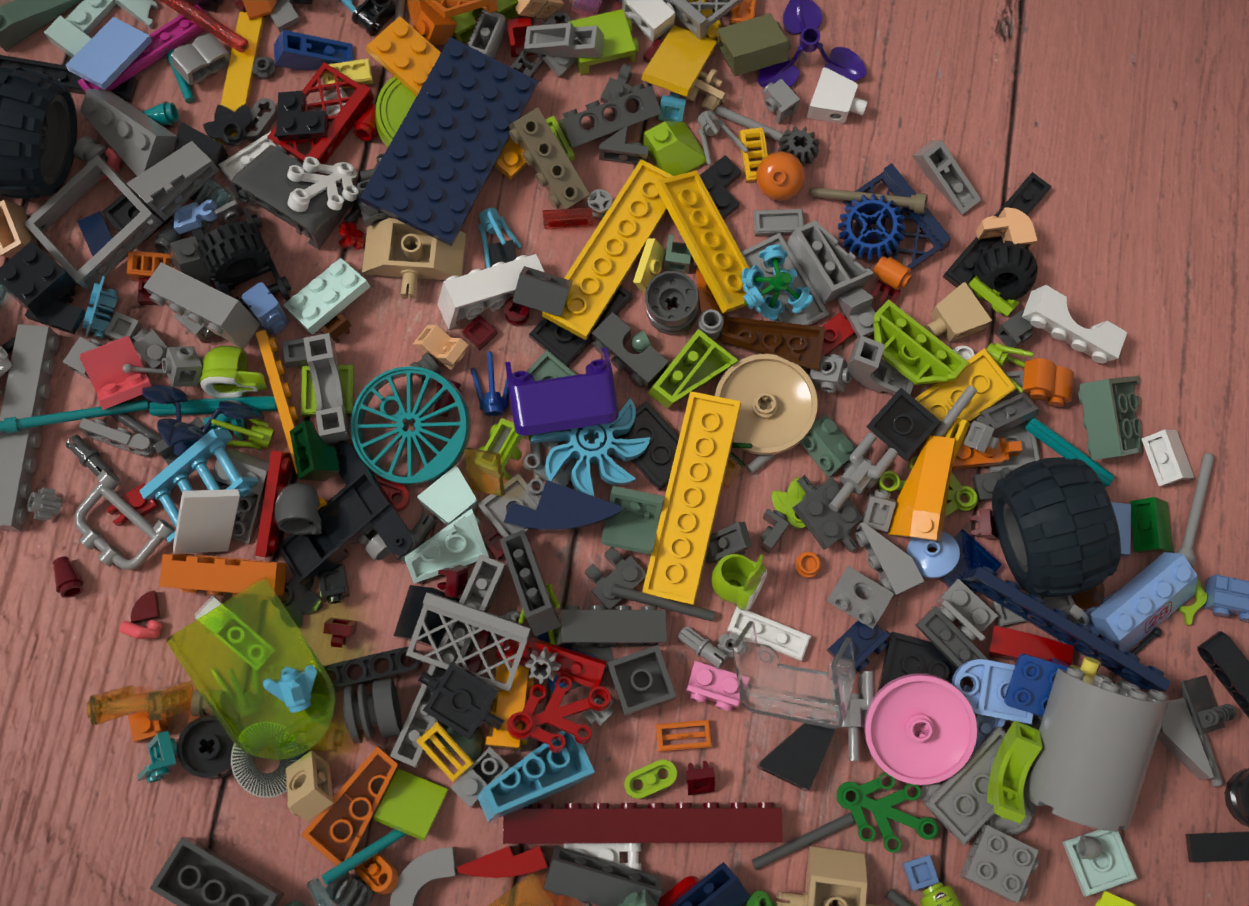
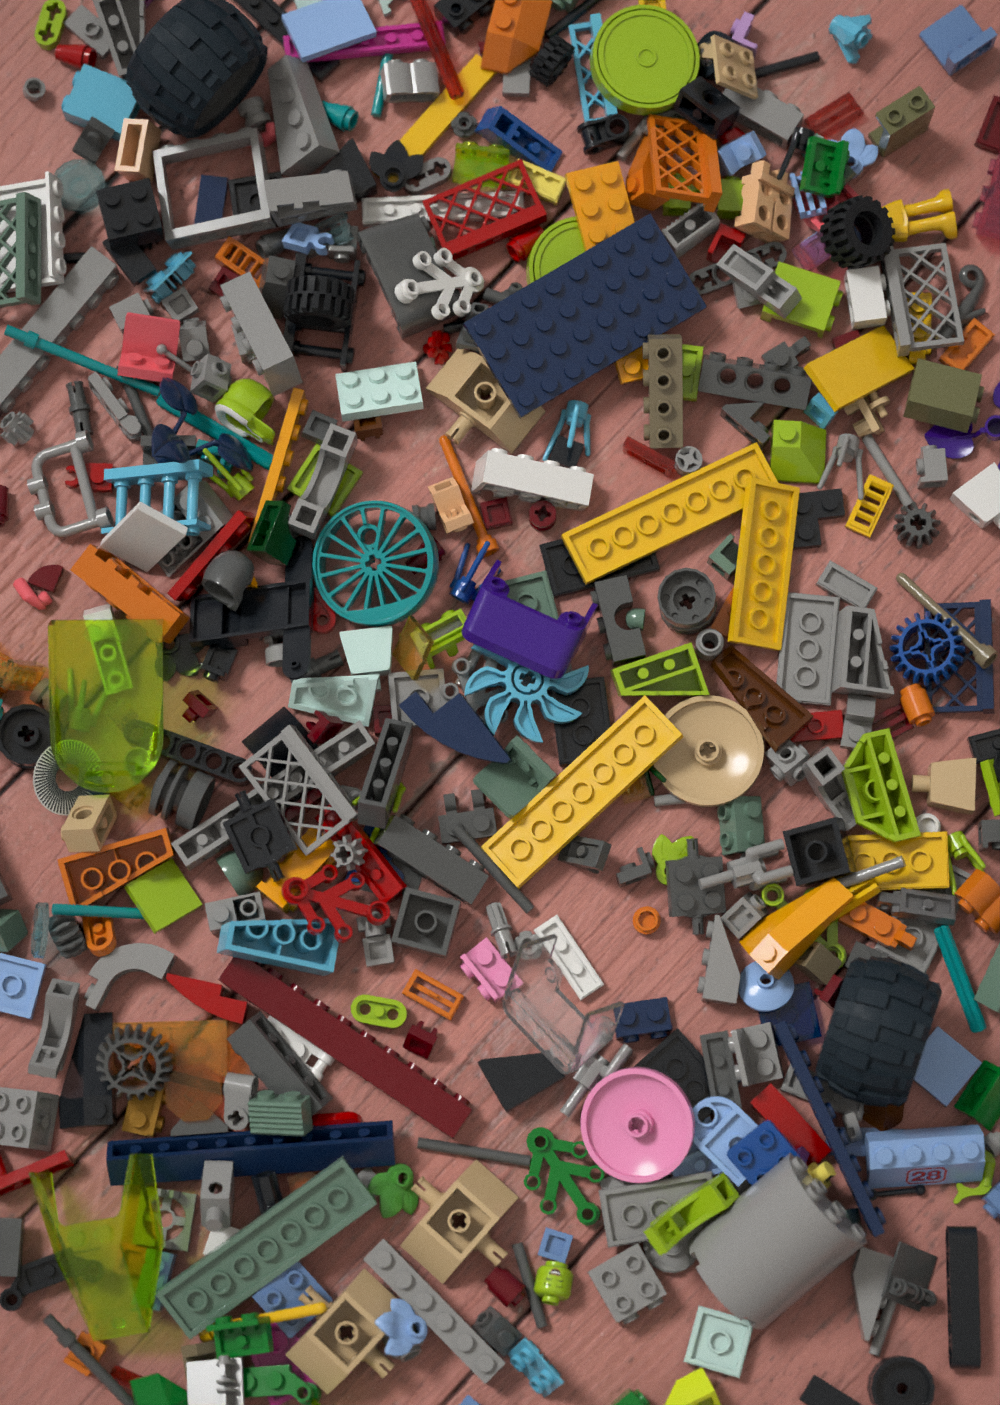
camera: 40 degrees right, 5 degrees up
(265, 309) = (316, 371): medium blue brick -> none
(293, 80) = (477, 160): none -> clear neon green bracket
(293, 687) = (127, 731): medium azure rock -> none
(294, 122) = (454, 202): black plate -> none
(429, 320) = (459, 477): none -> orange piece
(429, 733) = (216, 846): yellow tile -> none
(542, 291) = (573, 514): dark grey panel -> none
(616, 729) = (378, 950): none -> light grey plate
(649, 264) = (694, 550): light yellow plate -> none
(738, 580) = (572, 893): lime piece -> none
(754, 279) = (801, 647): medium azure plant -> none
(780, 176) = (876, 544): orange cylinder -> none
(860, 597) = (671, 965): light grey brick -> none
(961, 510) = (818, 963): none -> dark tan panel
(980, 437) = (878, 910): light grey tile -> none
(1089, 847) = (714, 1323): light grey hinge -> none

